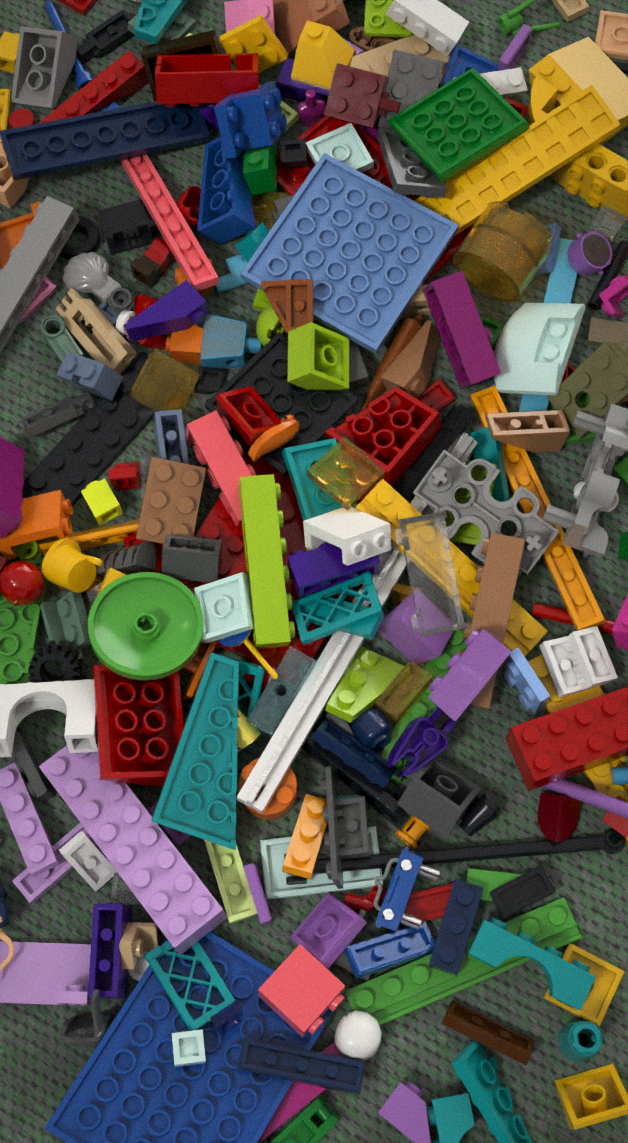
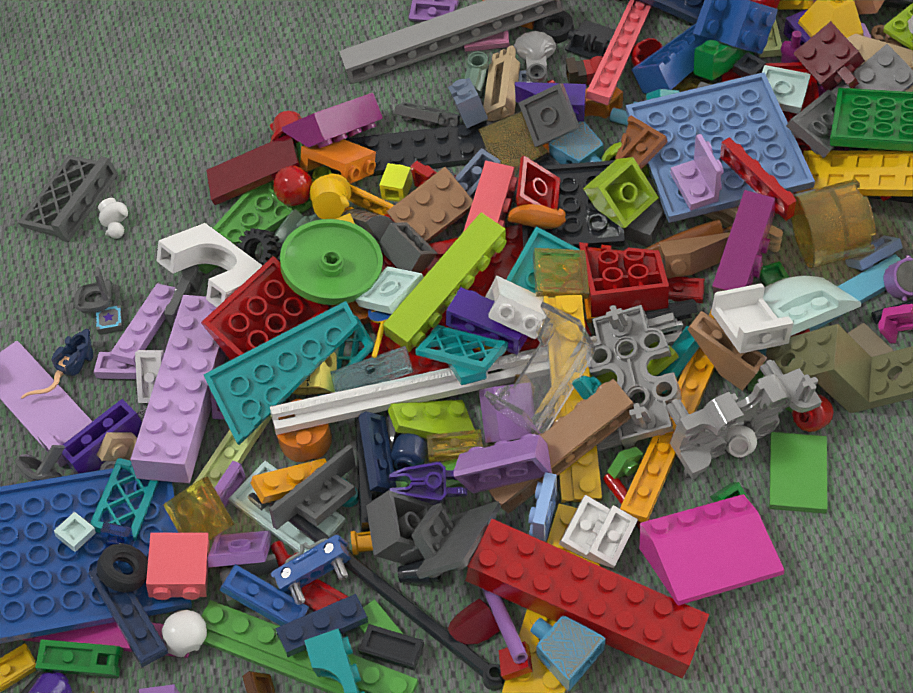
camera: 45 degrees right, 15 degrees down
(184, 334) = (549, 115): none -> dark grey plate
(263, 1054) = (119, 581): none -> black tyre
(267, 935) = (199, 510): none -> clear yellow plate
(373, 294) = (700, 178): none -> lavender bracket
(417, 259) = (757, 177): none -> red plate
(463, 554) = (586, 386): none -> teal tile
(492, 766) = (448, 542): none -> dark grey bracket
(531, 391) = (749, 319): none -> white panel
(542, 588) = (625, 463): none -> bright green plate

